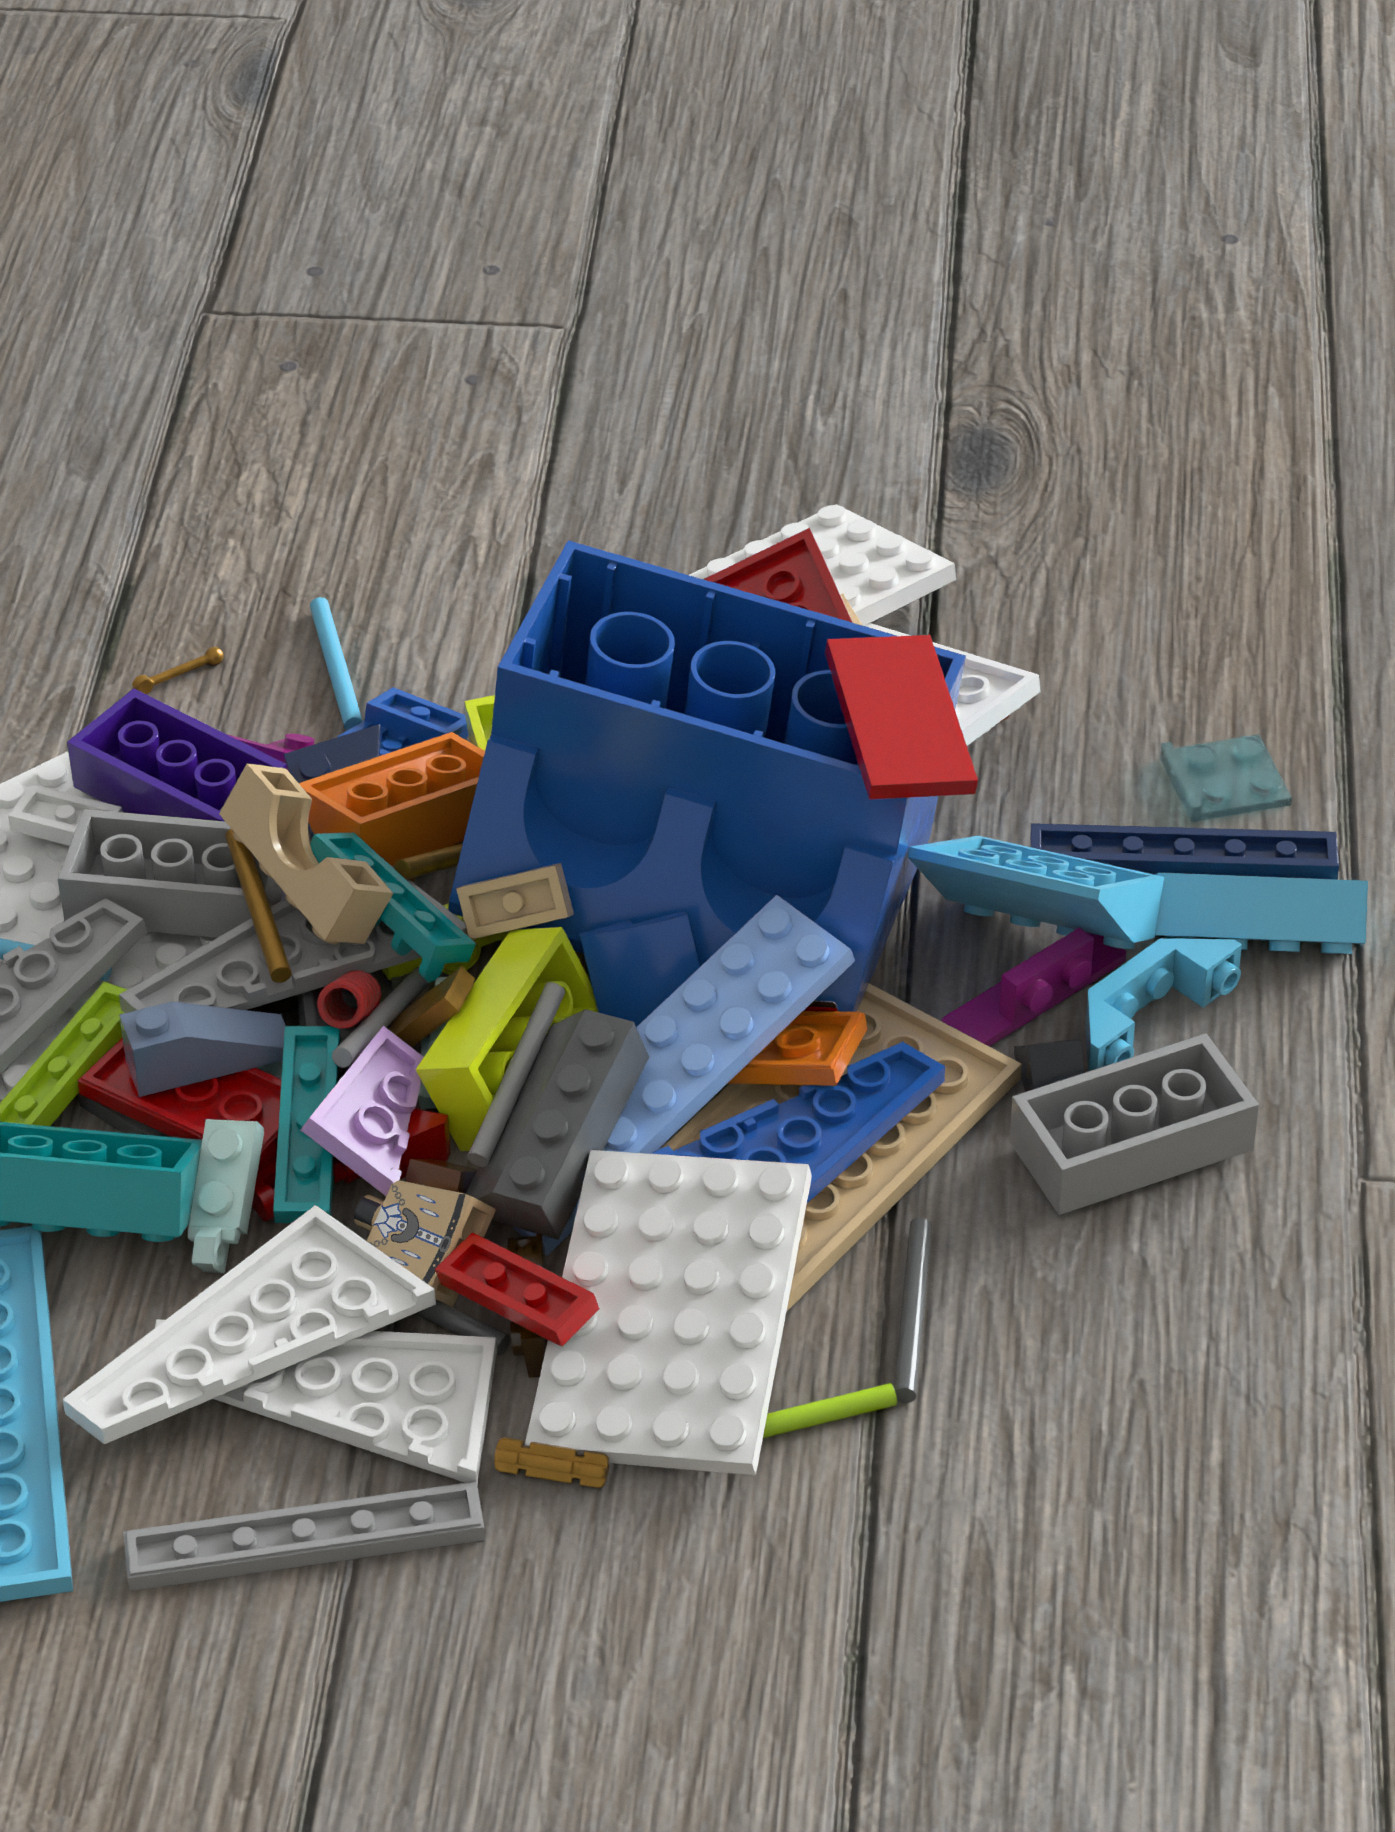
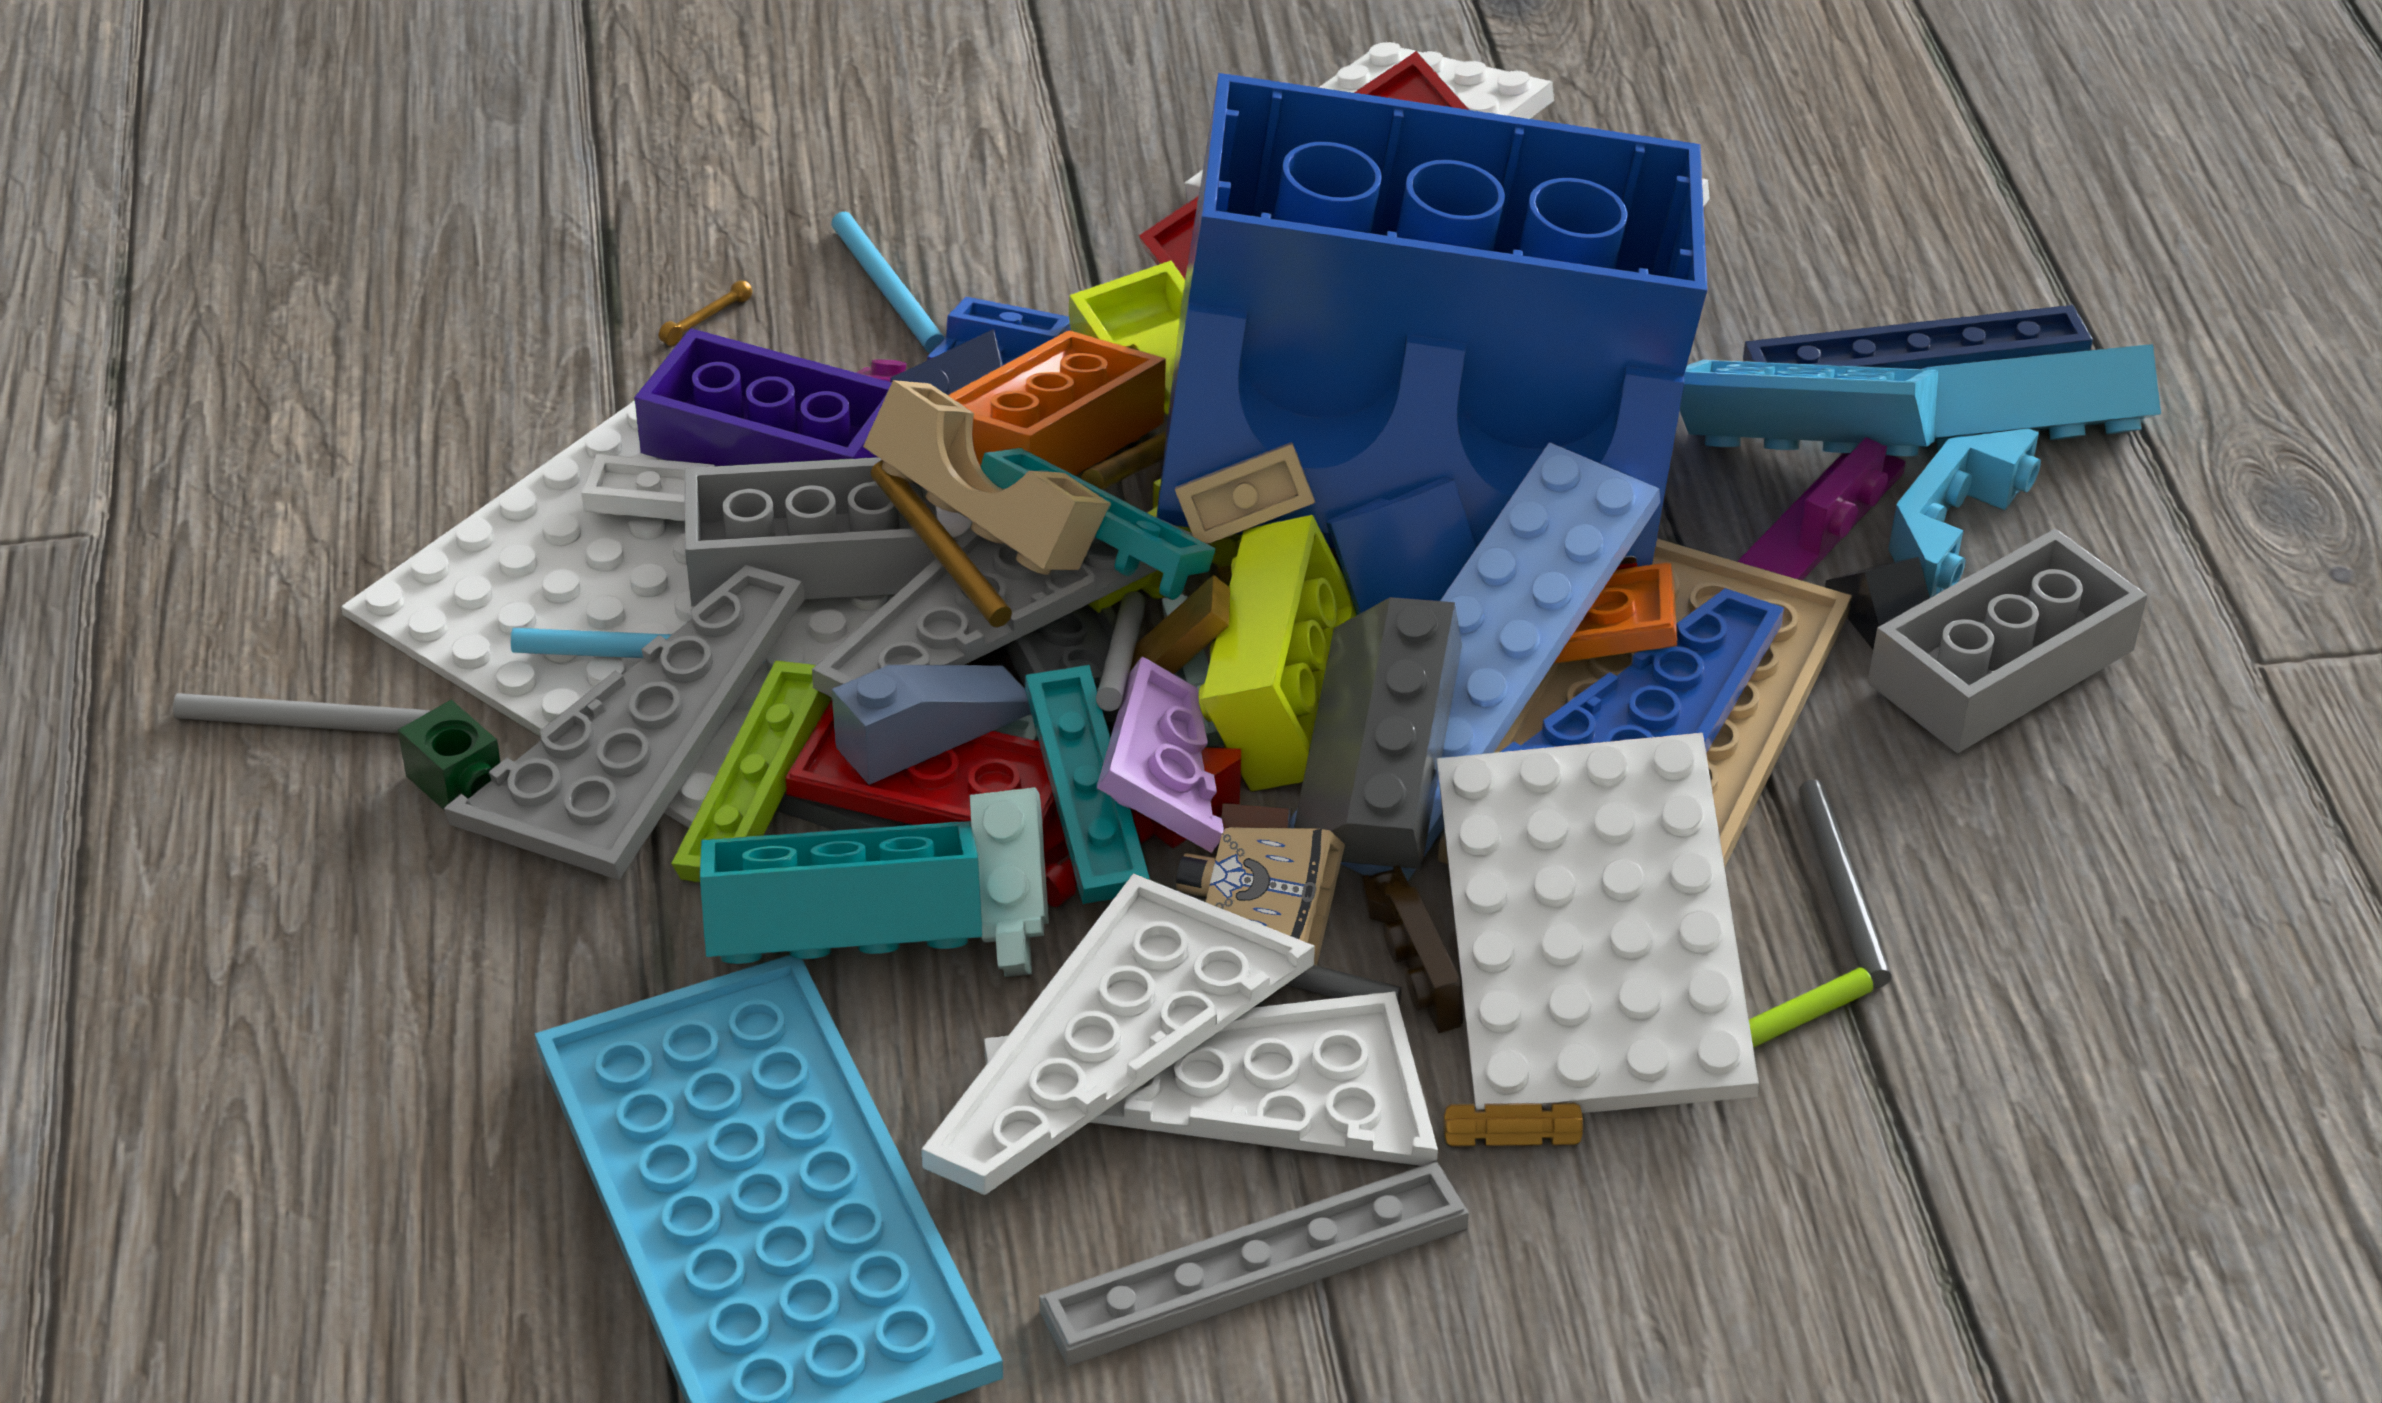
camera: 15 degrees left, 0 degrees up
(334, 1009) = (1104, 649): red piece -> none
(516, 1075) = (1314, 689): light grey bar -> none
(517, 1289) = (1415, 929): red plate -> none
(900, 717) = (1668, 215): red tile -> none
(1225, 777) = (1919, 268): clear light blue piece -> none

